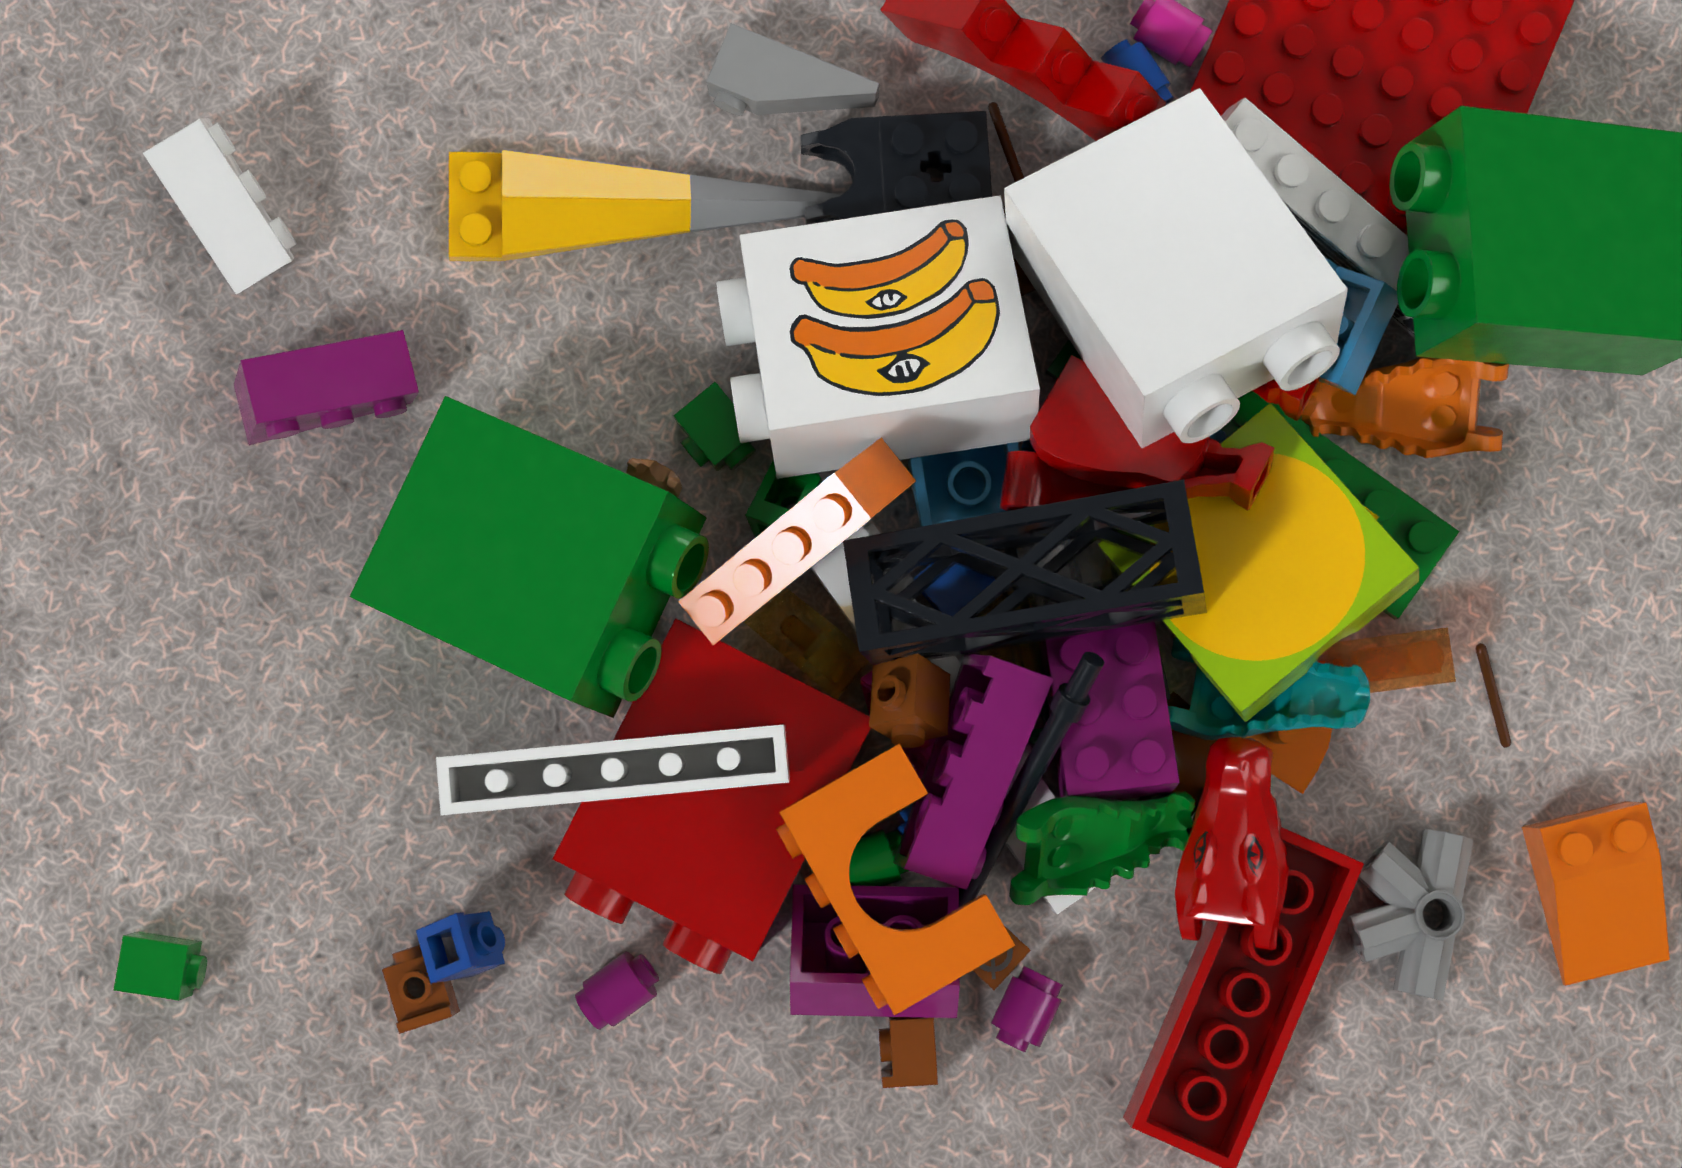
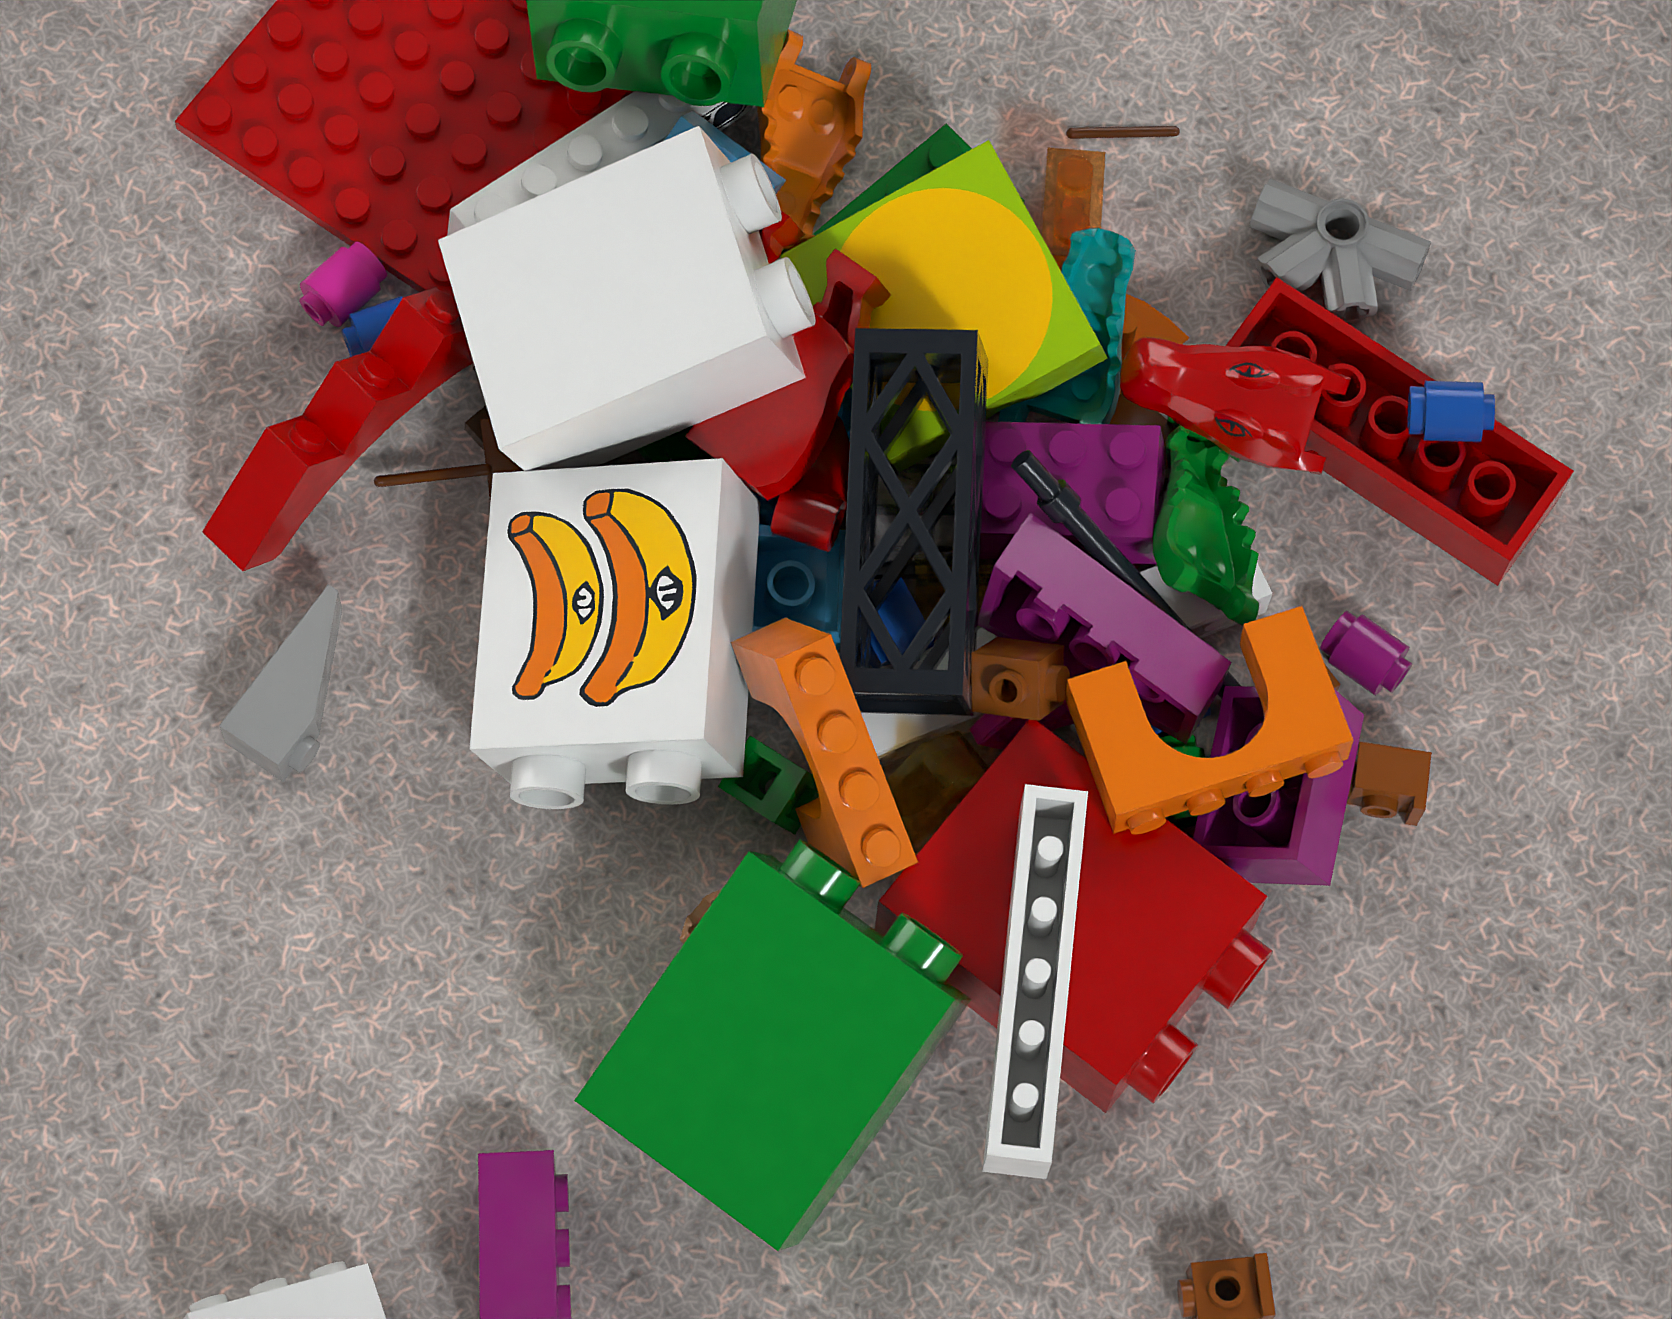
camera: 80 degrees left, 15 degrees down
(476, 941) = (1189, 1230): blue brick -> none
(545, 205) = (365, 986): yellow plate -> none
(617, 990) = (1268, 1077): magenta brick -> none
(712, 430) = (668, 844): green brick -> none
(891, 160) = (425, 598): black brick -> none
(1260, 1049) = (1450, 411): none -> blue brick
(1601, 890) = (1342, 72): orange slope -> none

